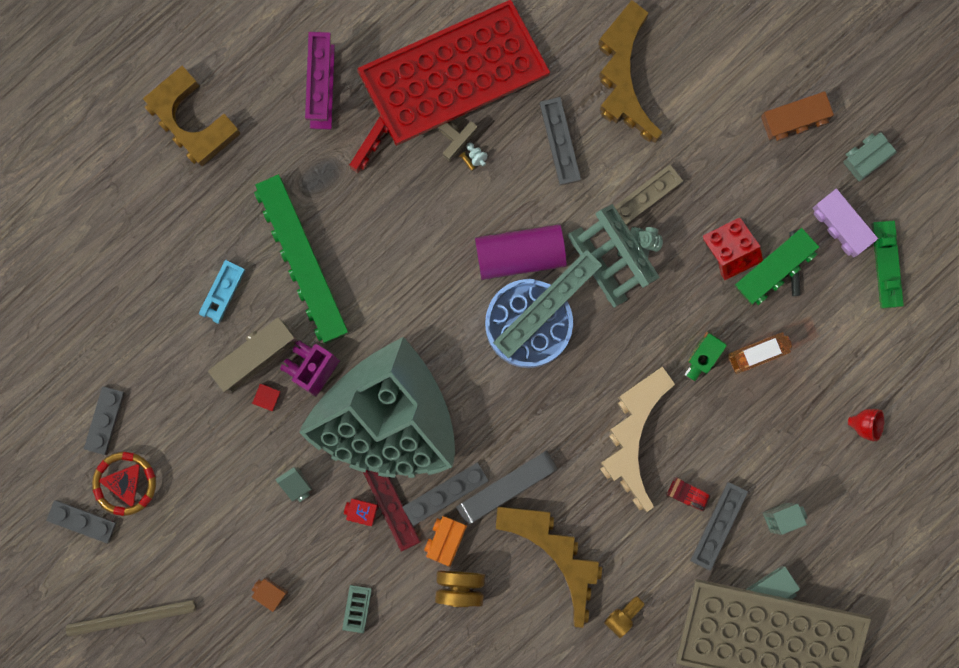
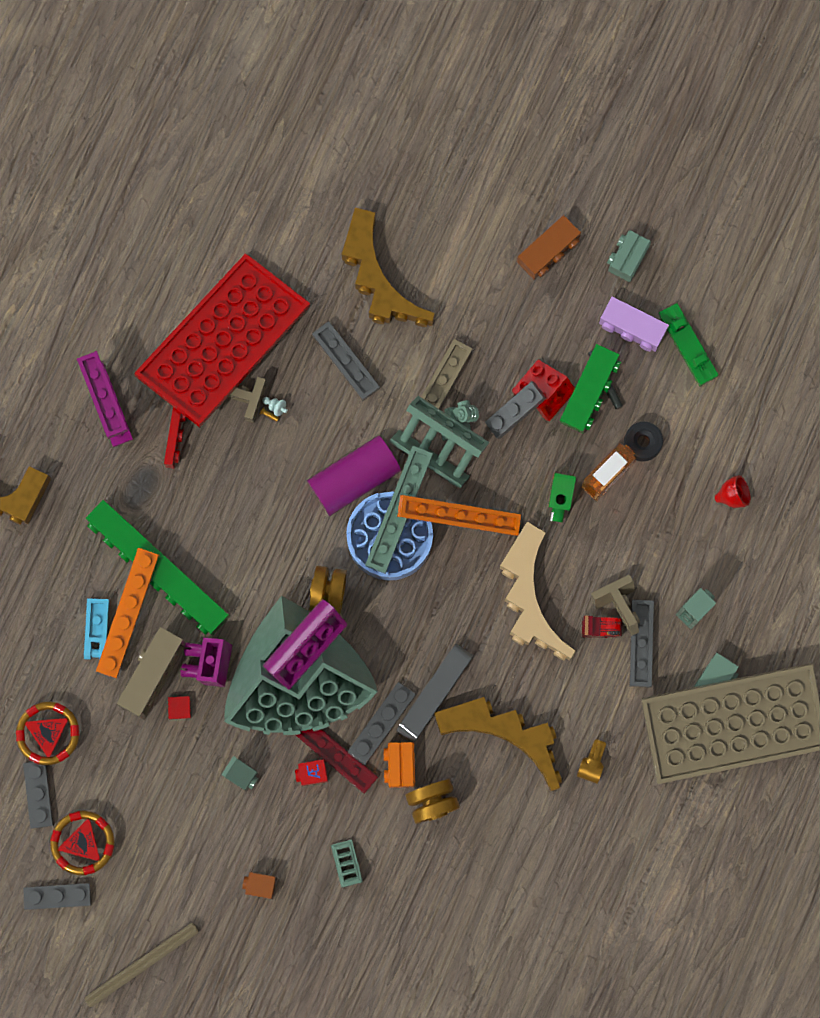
camera: 25 degrees left, 5 degrees down
(135, 369) = (47, 733): none -> piece
(255, 289) = (127, 613): none -> orange plate
(402, 395) = (305, 644): none -> magenta brick
(446, 349) = (330, 591): none -> pearl gold wheel
(601, 333) = (459, 515): none -> orange plate
(698, 256) = (515, 410): none -> dark grey plate
(715, 469) = (616, 593): none -> dark tan bracket
(816, 333) = (655, 438): none -> black tyre

